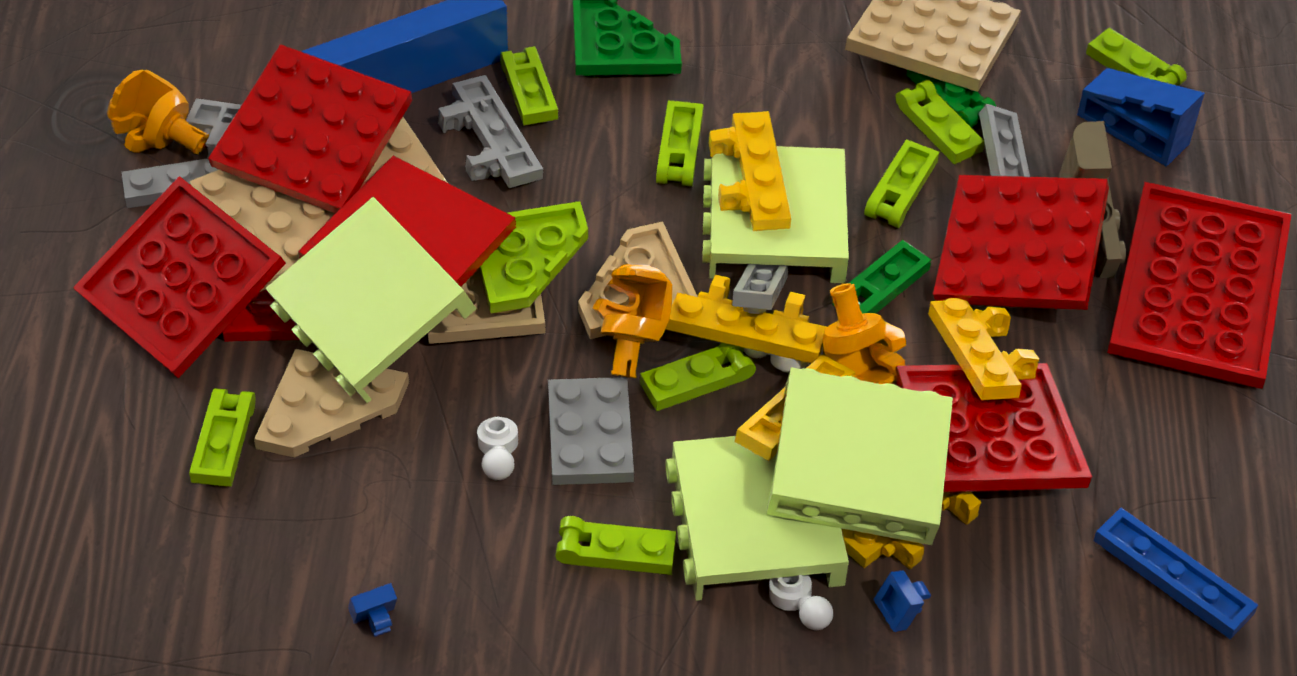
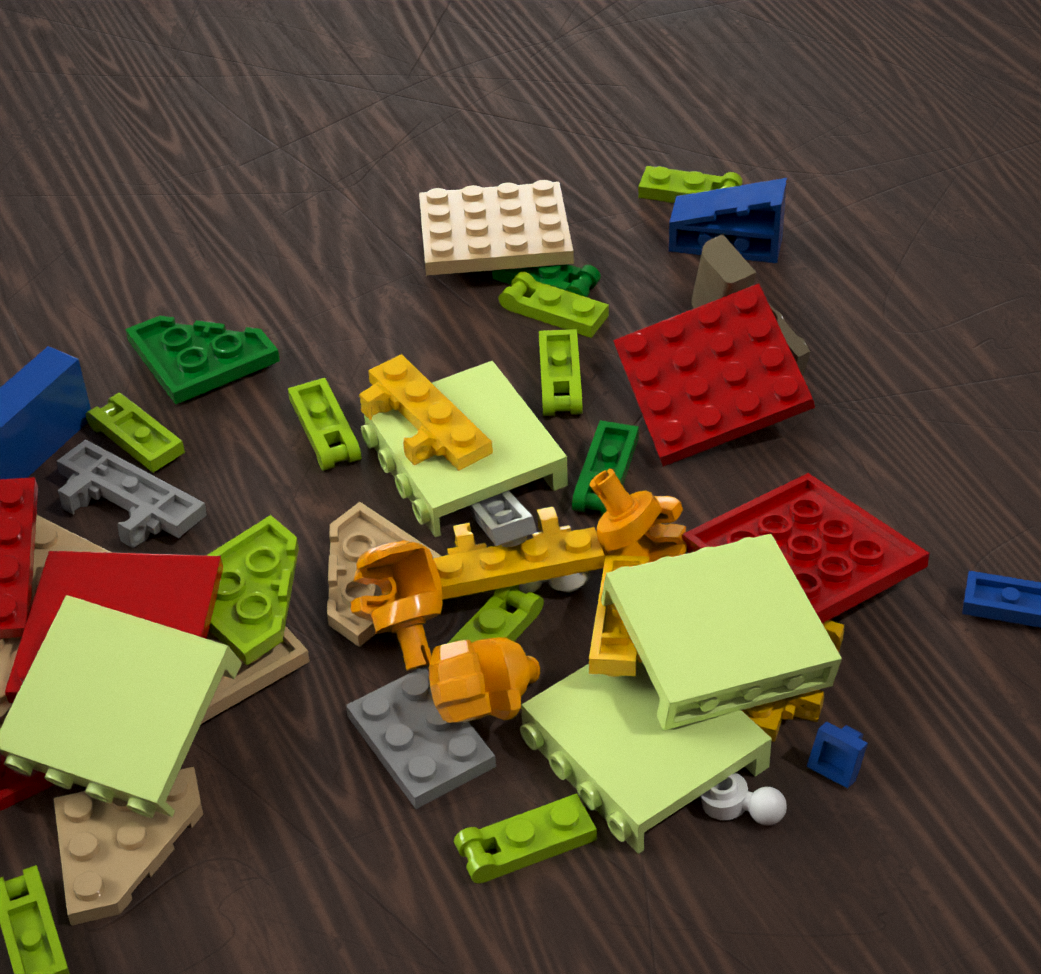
camera: 25 degrees left, 5 degrees down
(497, 440) = (333, 789): white plate -> none
(655, 407) = (480, 678): none -> light orange piece
(970, 341) = (726, 480): yellow hinge -> none
(1003, 142) = (626, 298): light grey plate -> none
(1201, 285) = (887, 348): red plate -> none

